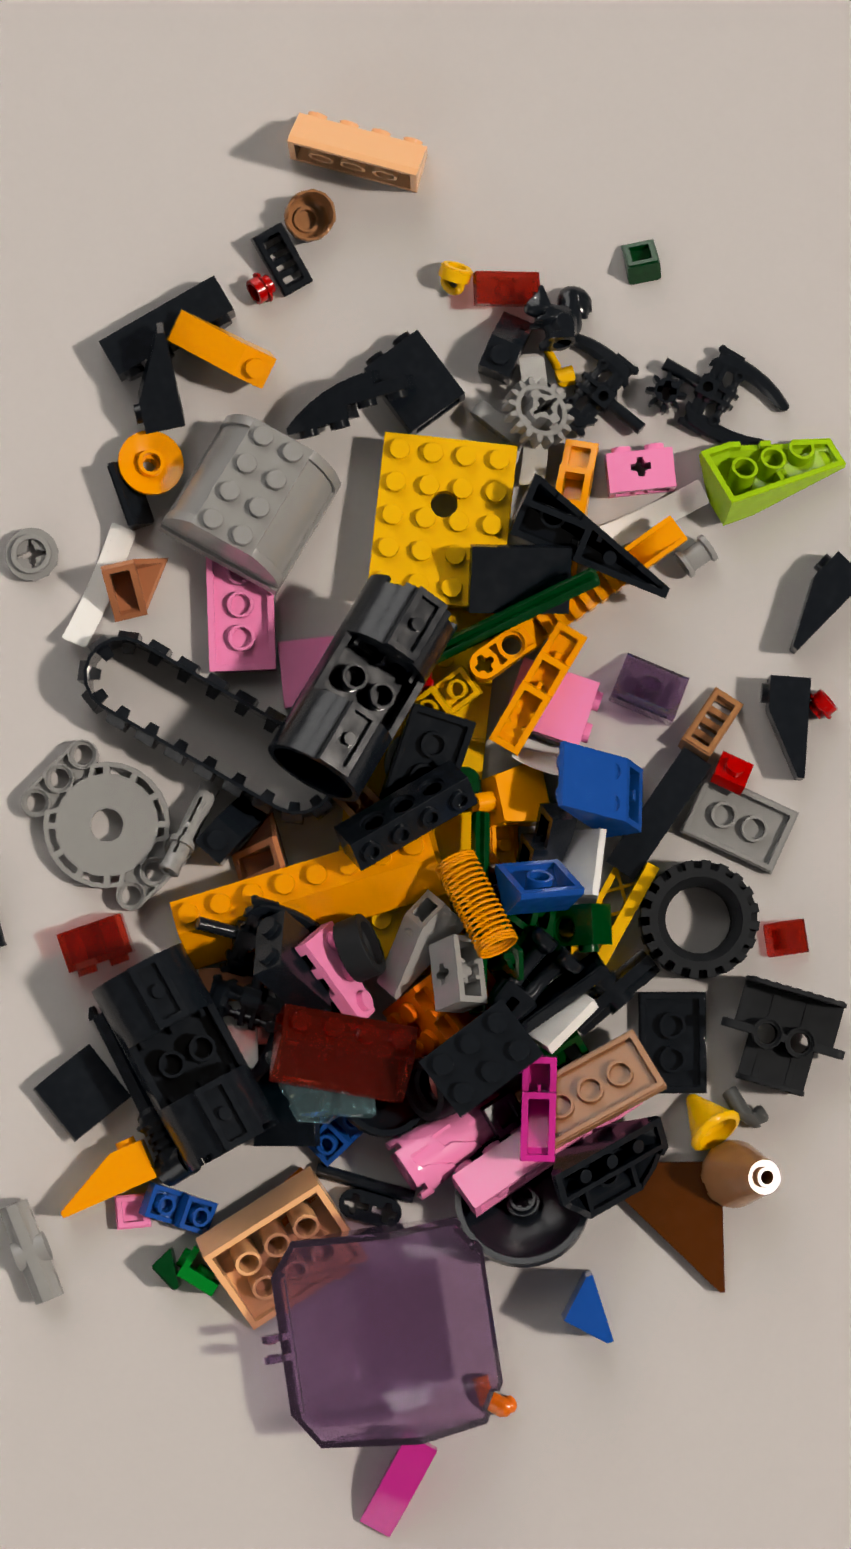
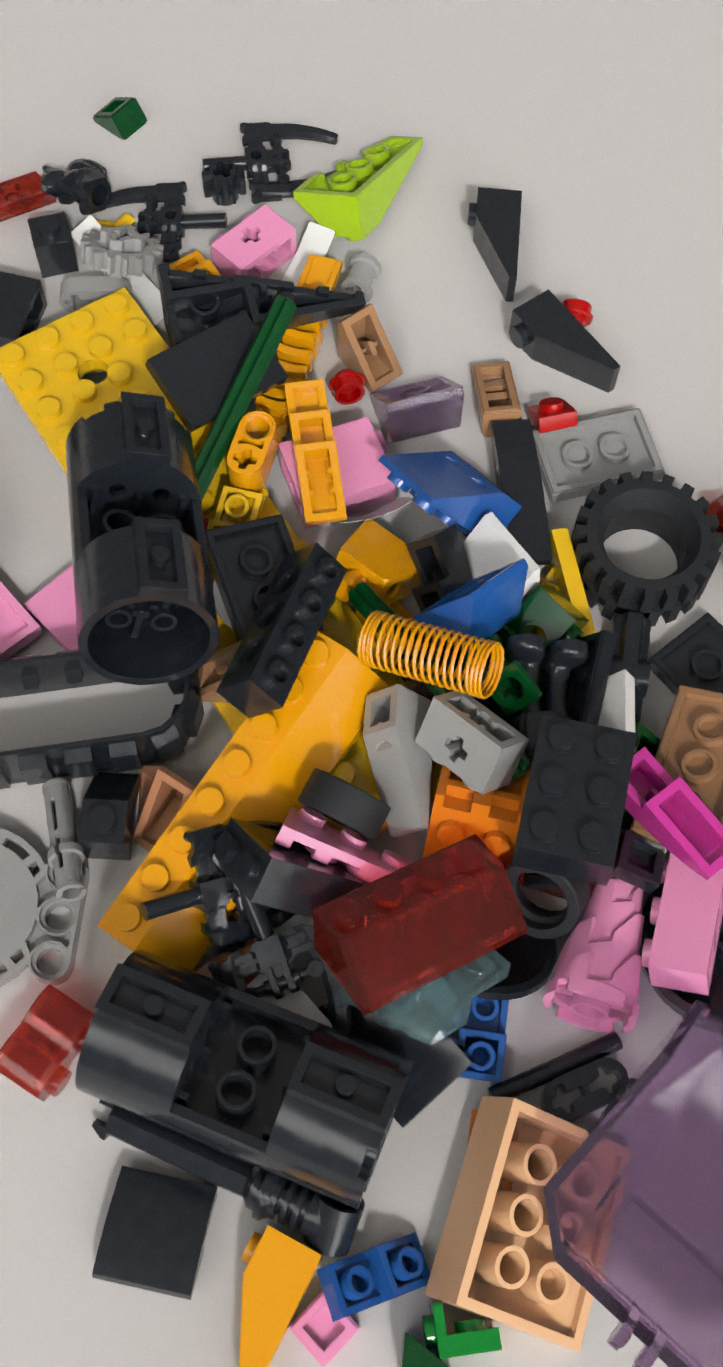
camera: 45 degrees left, 20 degrees down
(614, 638) = (347, 386): none -> red plate
(649, 625) = (366, 348): none -> medium nougat slope

